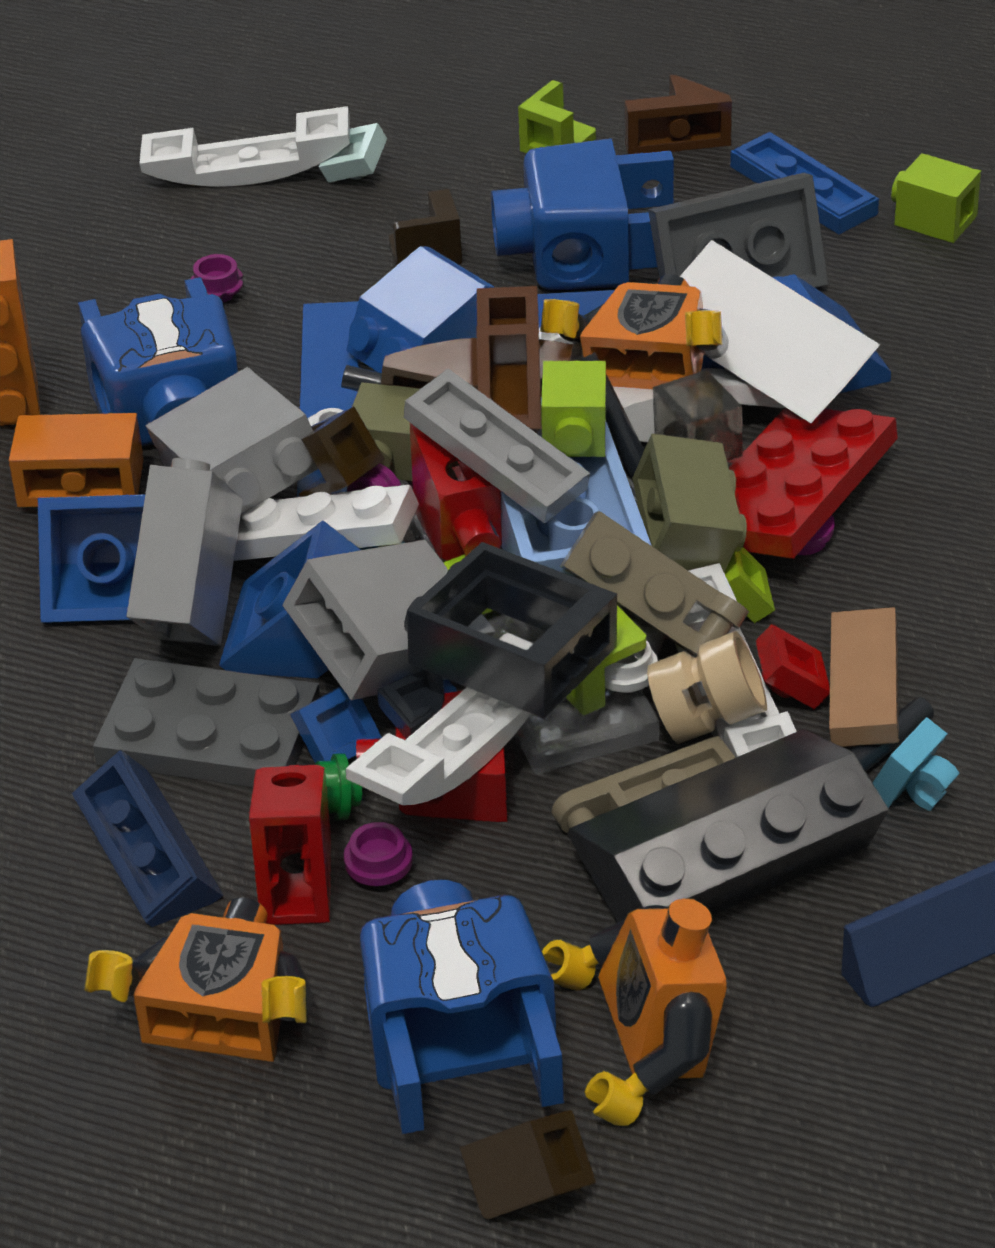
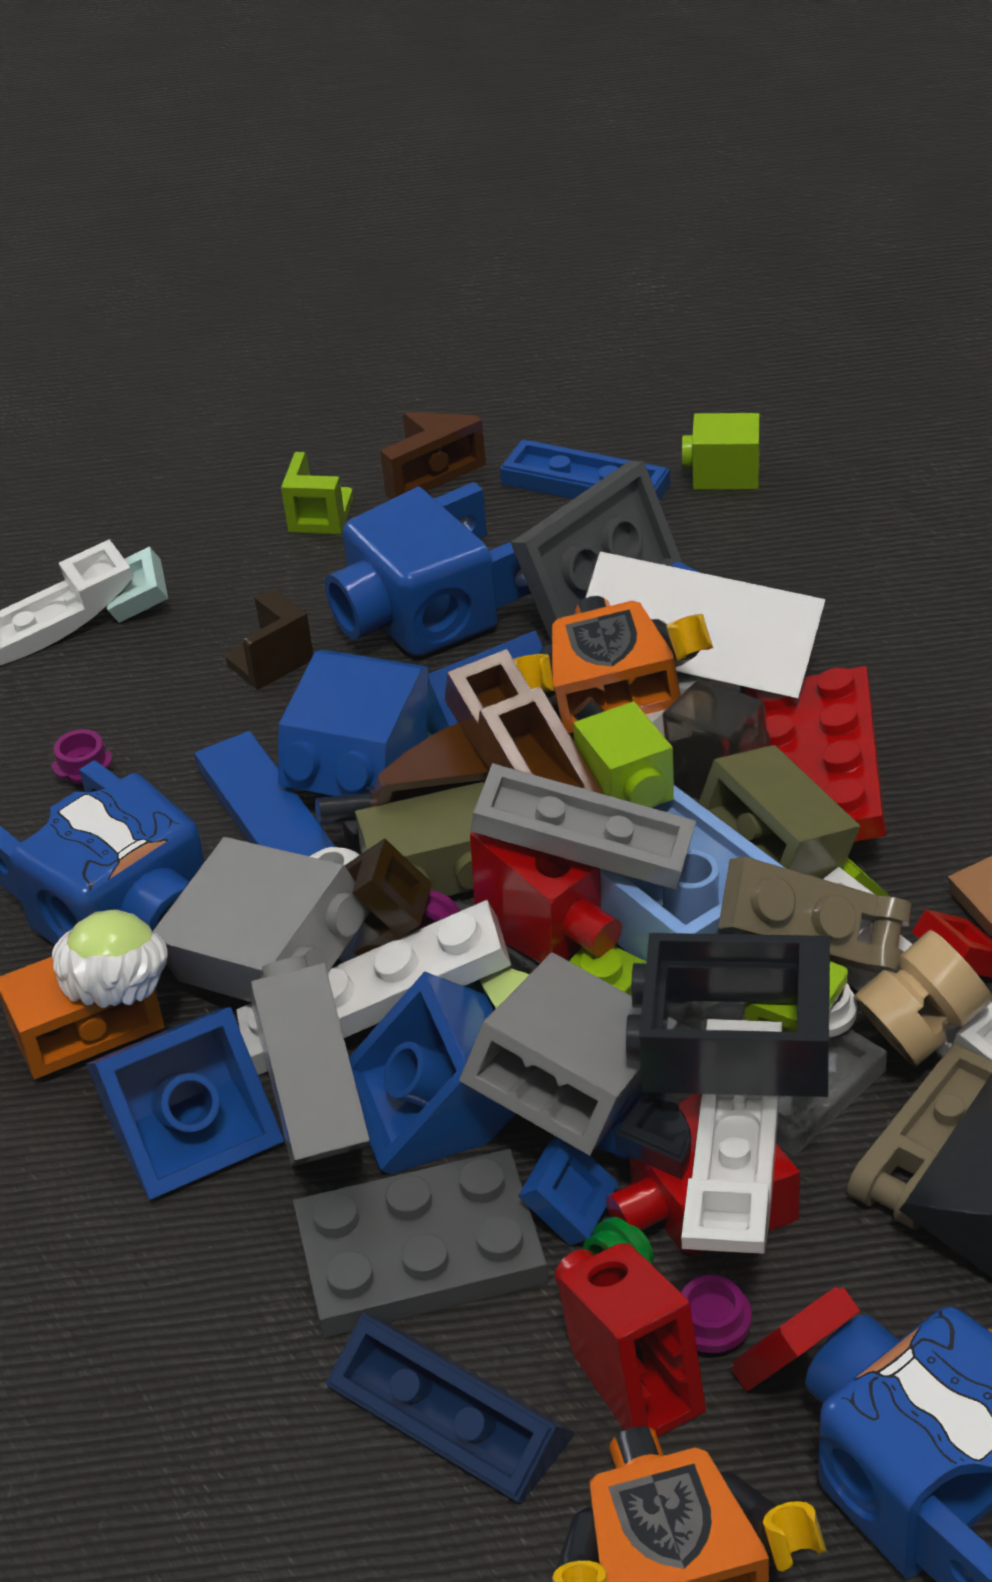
camera: 25 degrees left, 0 degrees up
(101, 428) = (109, 959): none -> white hair
(397, 872) = (794, 1337): none -> red tile

